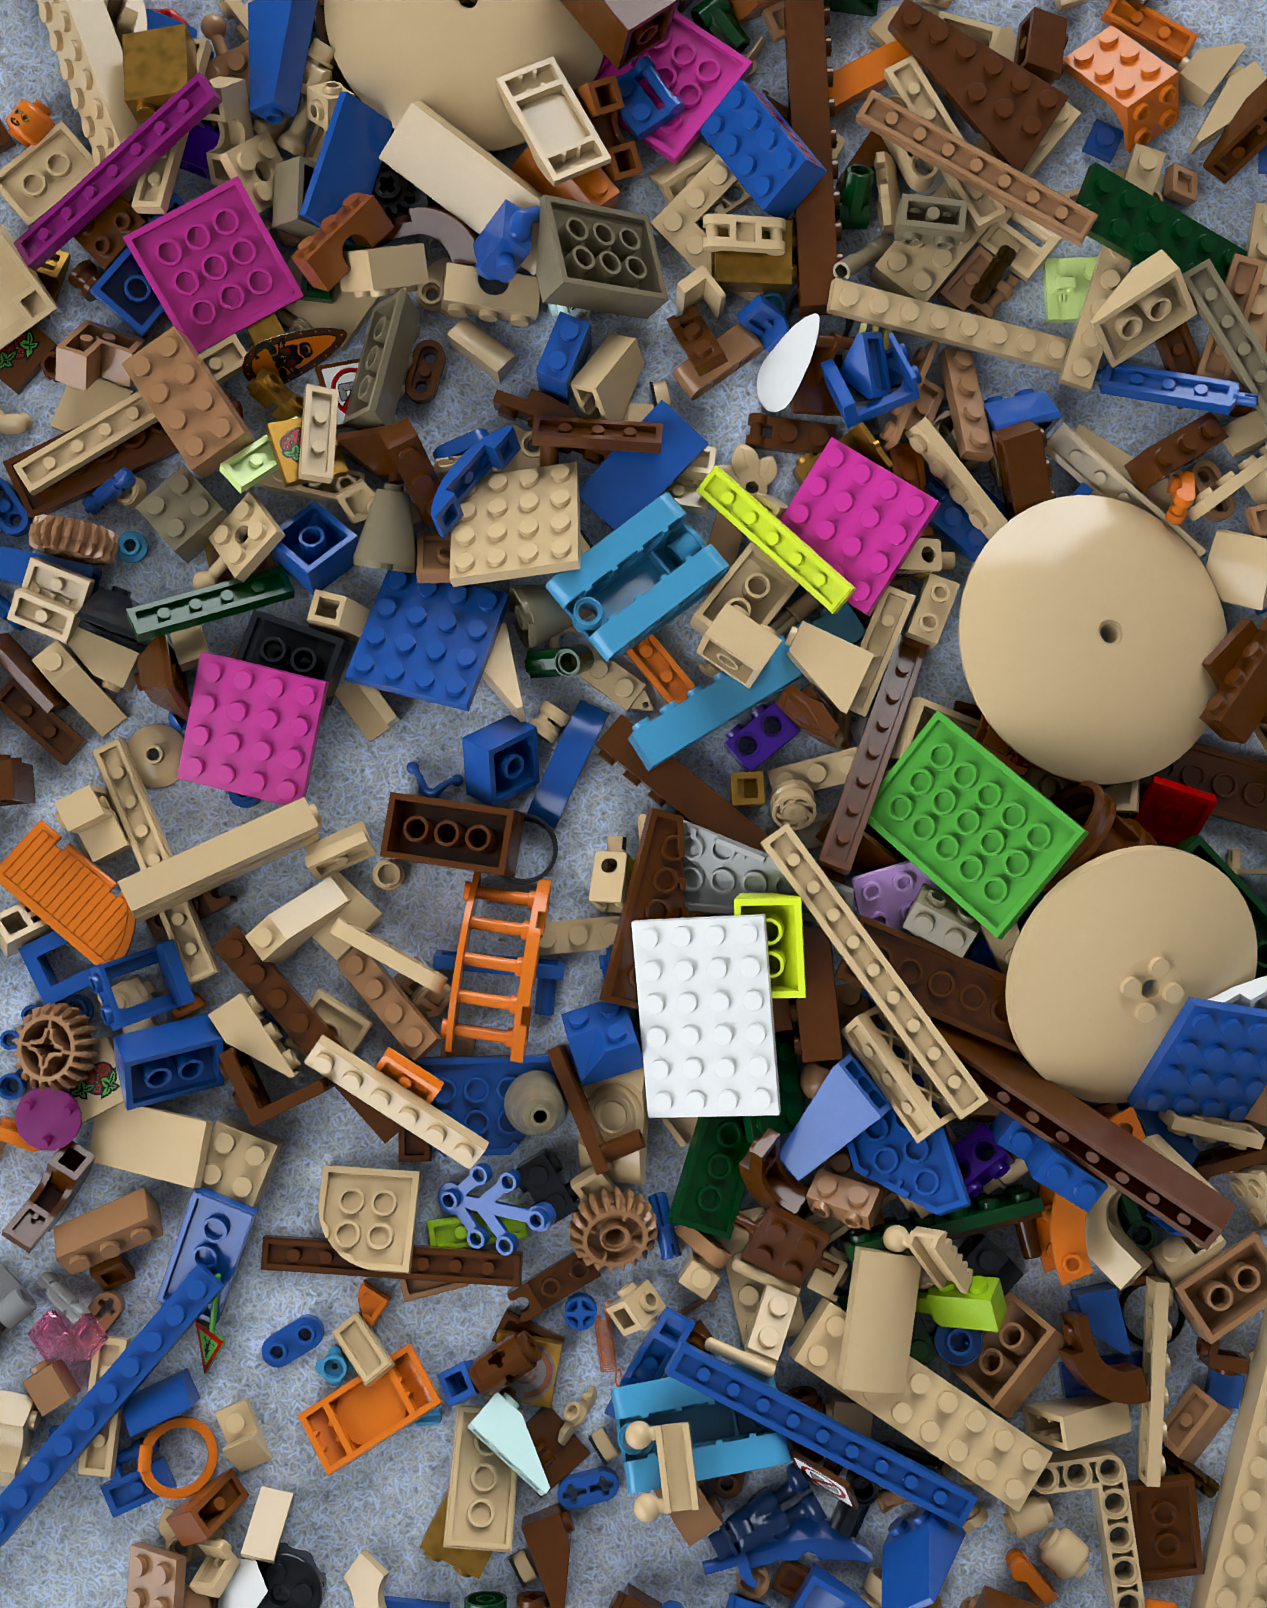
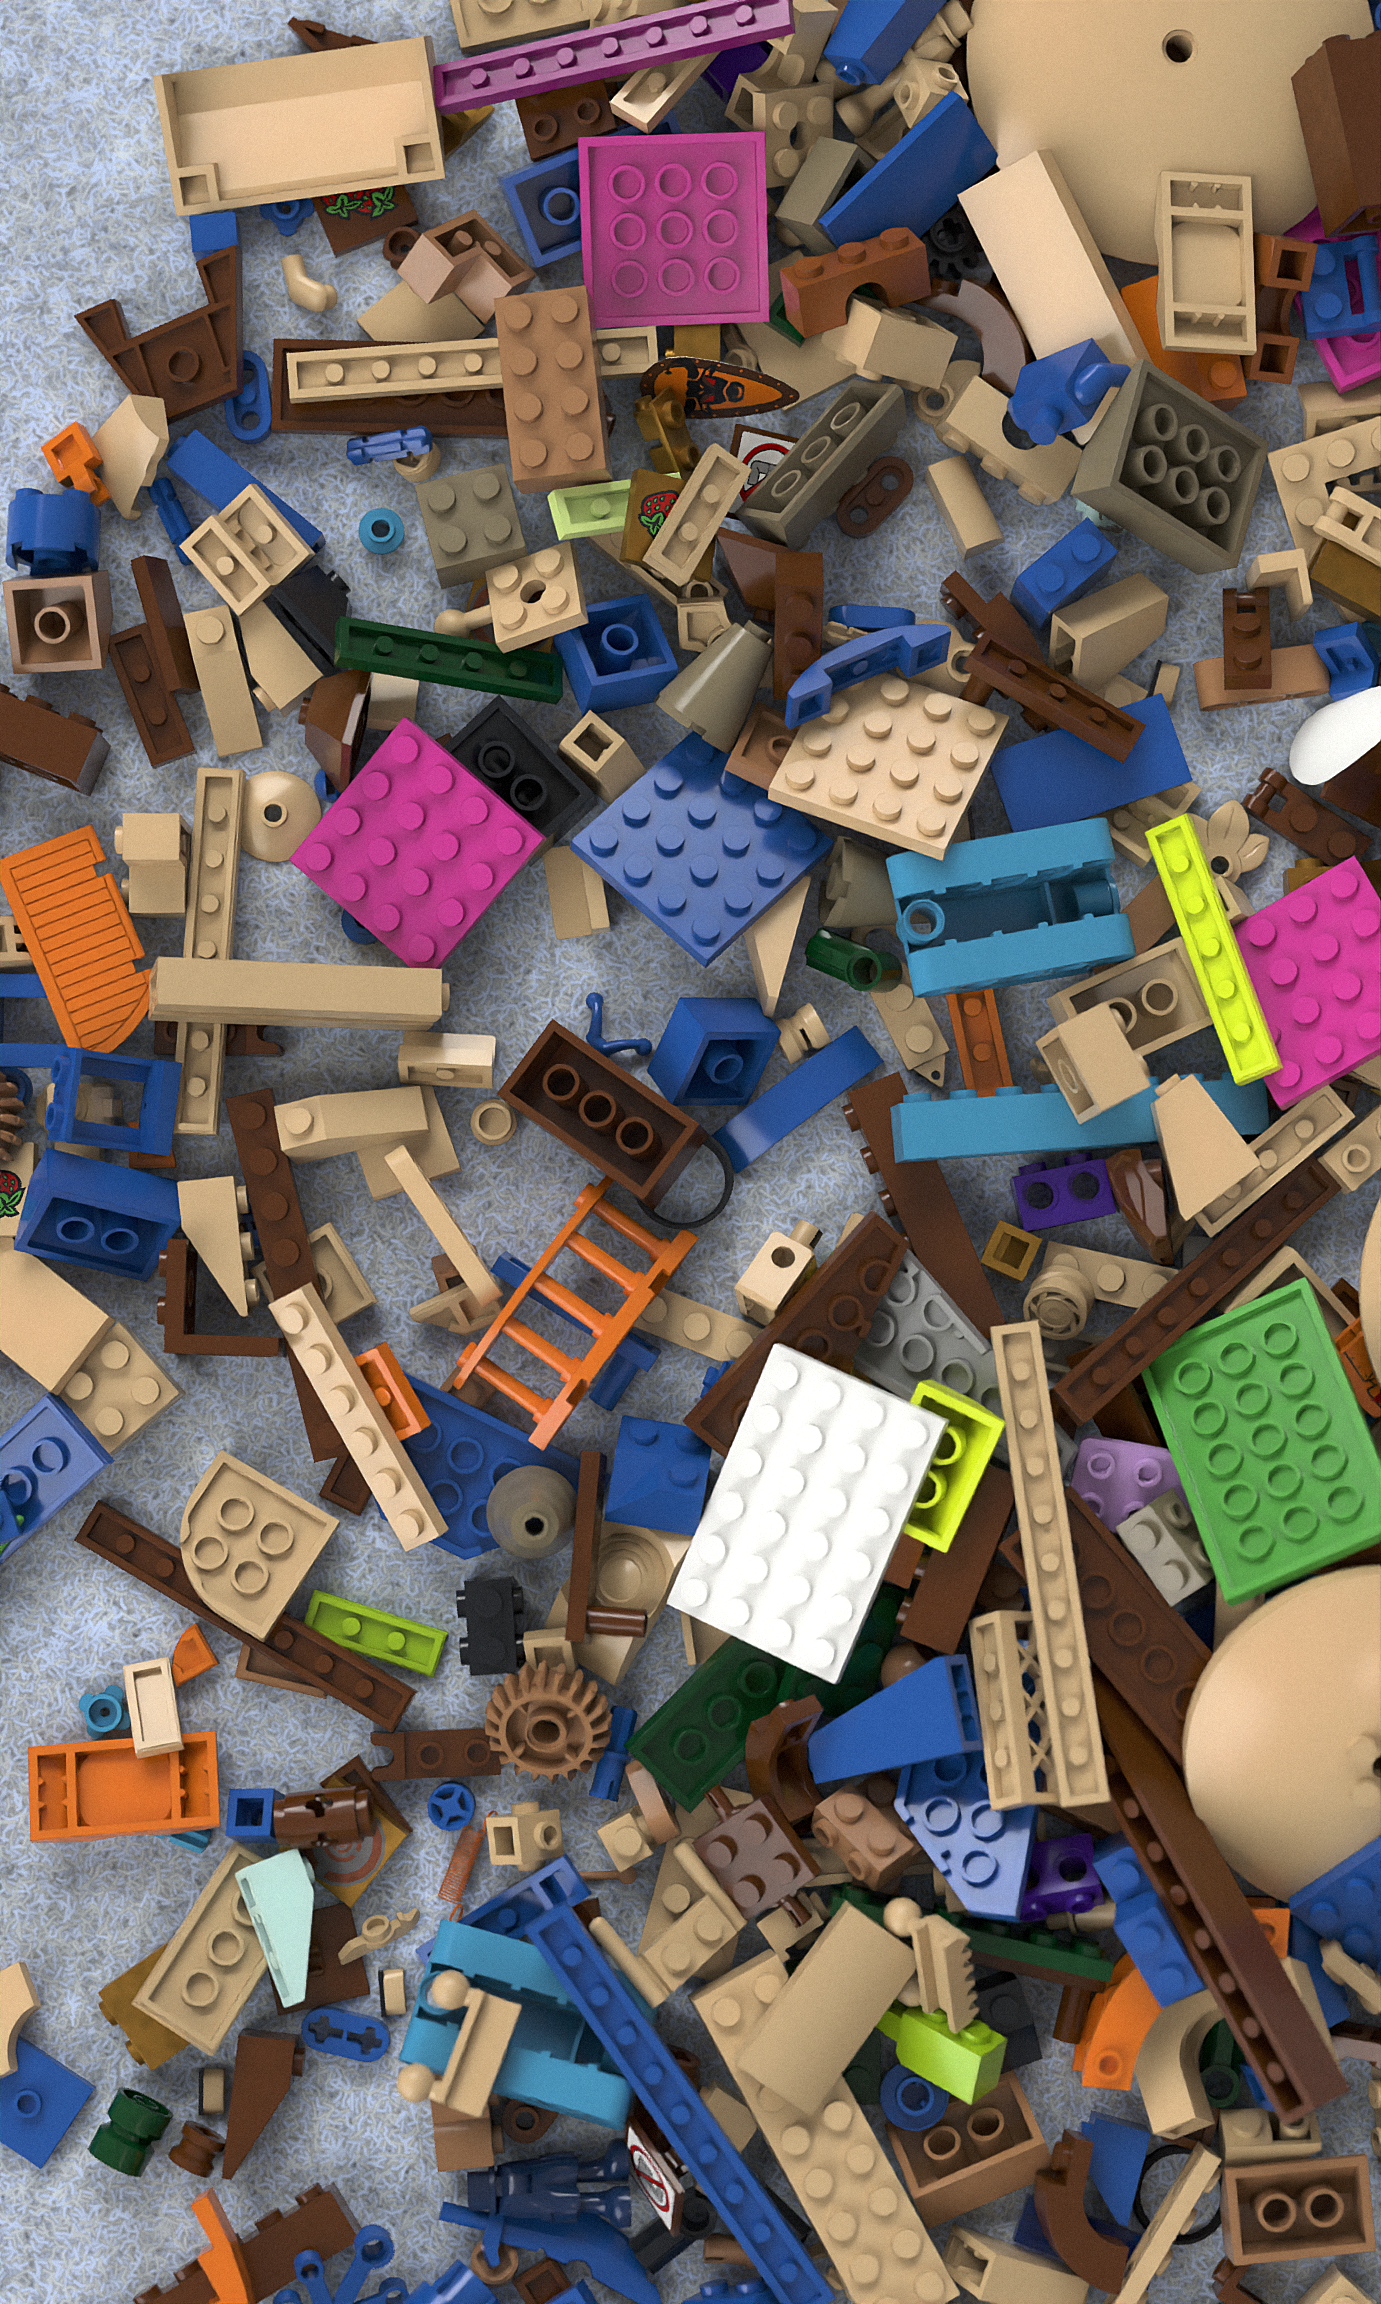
camera: 30 degrees right, 0 degrees up
(73, 539) = (314, 487): medium nougat gear -> none
(84, 278) = (500, 155): reddish brown wheel -> none
(291, 1340) = (66, 1652): blue plate -> none
(389, 1003) = (411, 1286): medium nougat plate -> none
(490, 1208) = (406, 1614): plant -> none
(794, 614) = (1186, 1058): tan axle -> none

